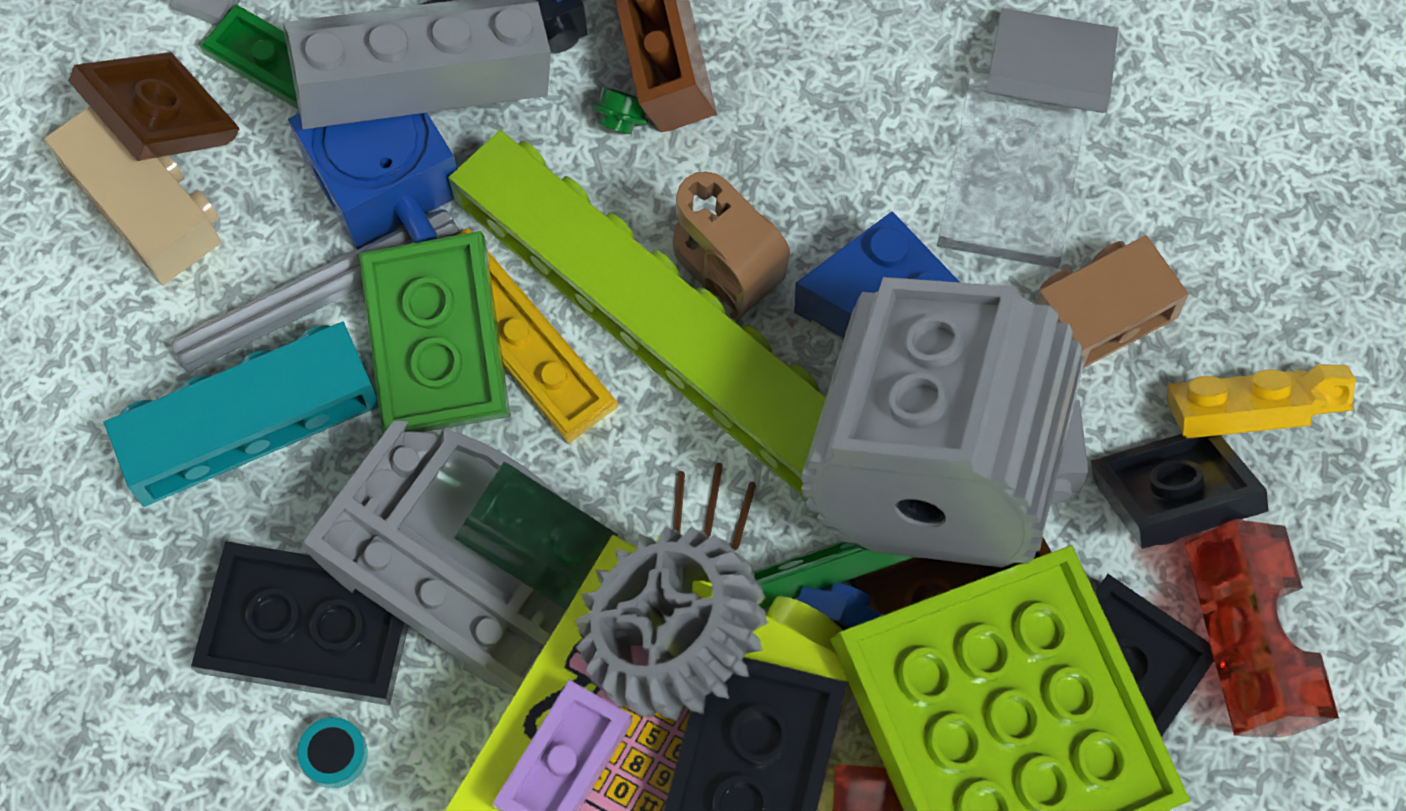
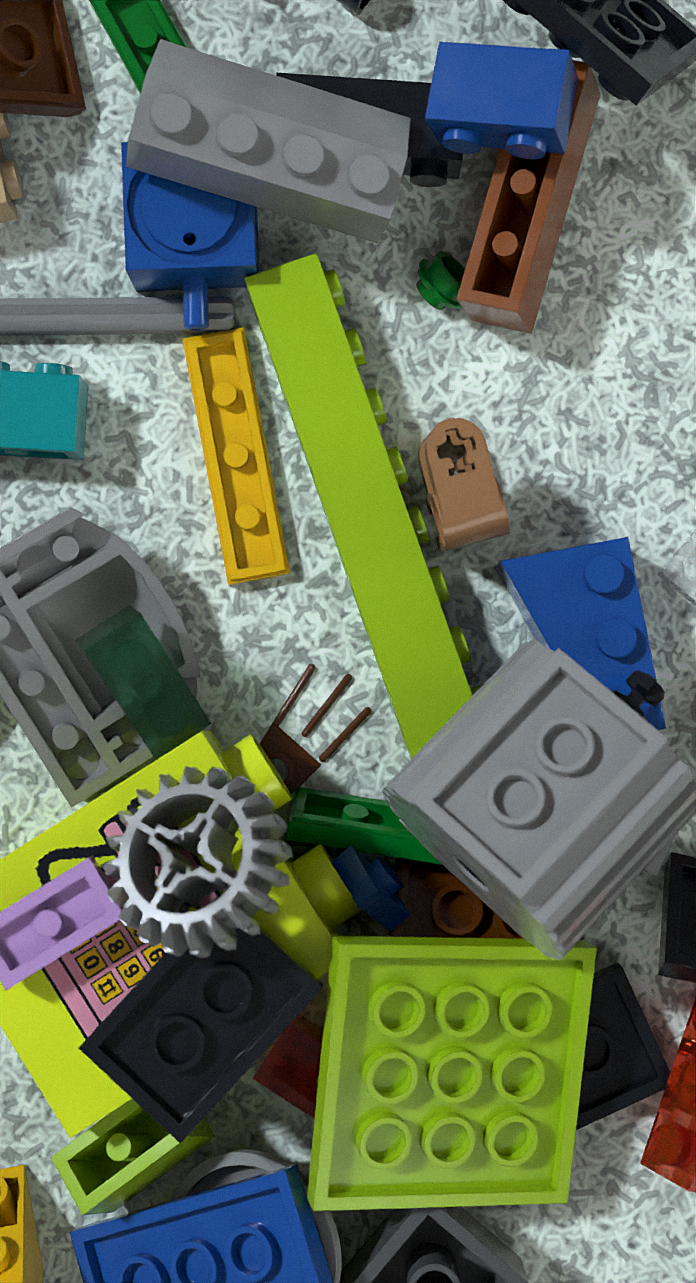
camera: 25 degrees right, 20 degrees up
(434, 333) = (159, 423): bright green tile -> none

